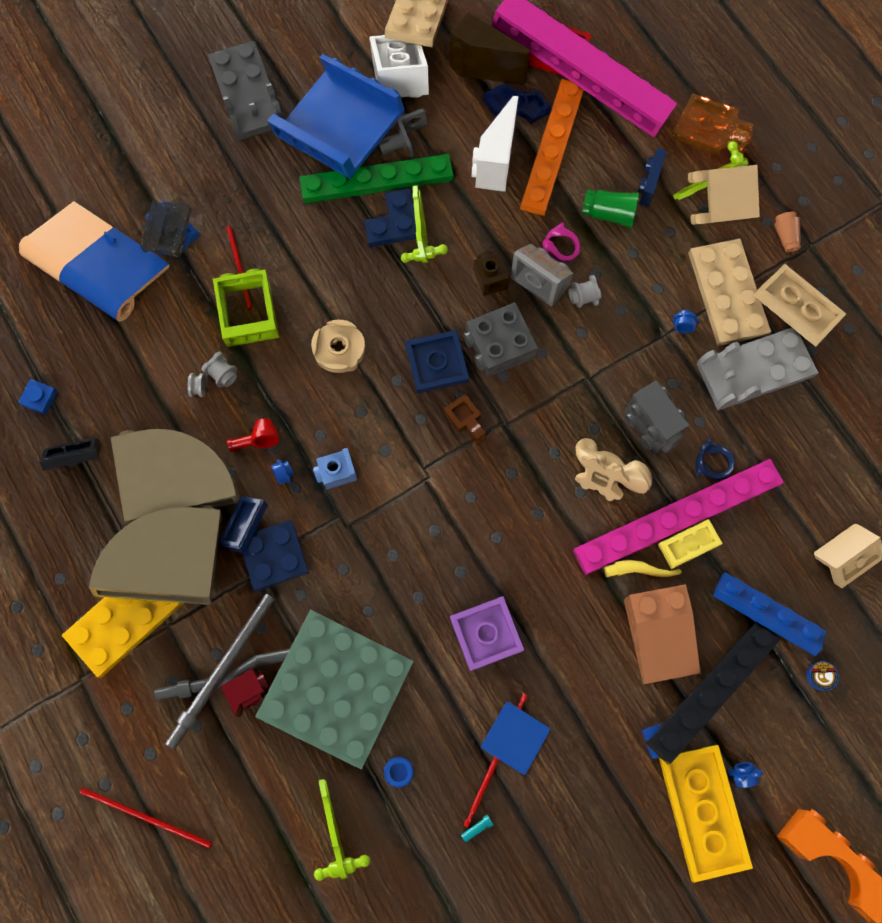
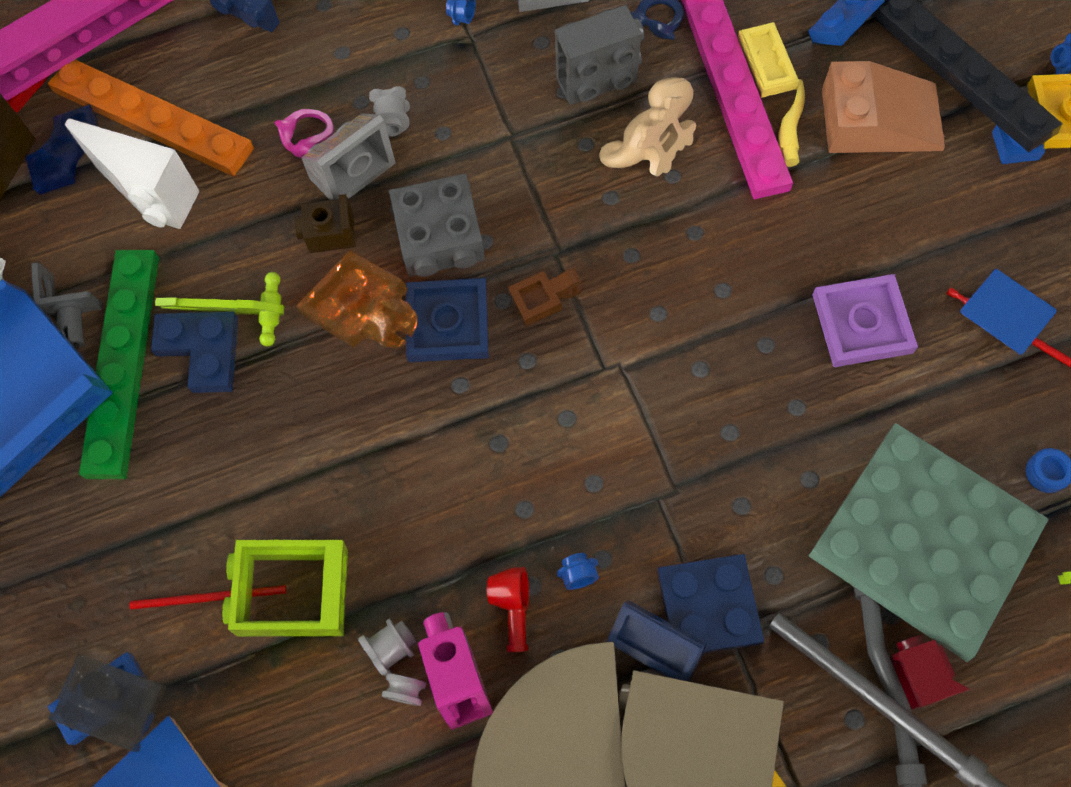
camera: 75 degrees left, 5 degrees down
(207, 408) = (453, 672): none -> dark pink torso
(329, 335) = (399, 477): tan plate -> none
(344, 474) = (588, 470): medium blue brick -> none
(435, 305) = (360, 303): none -> clear orange plate
(611, 206) = (271, 54): green plant -> none

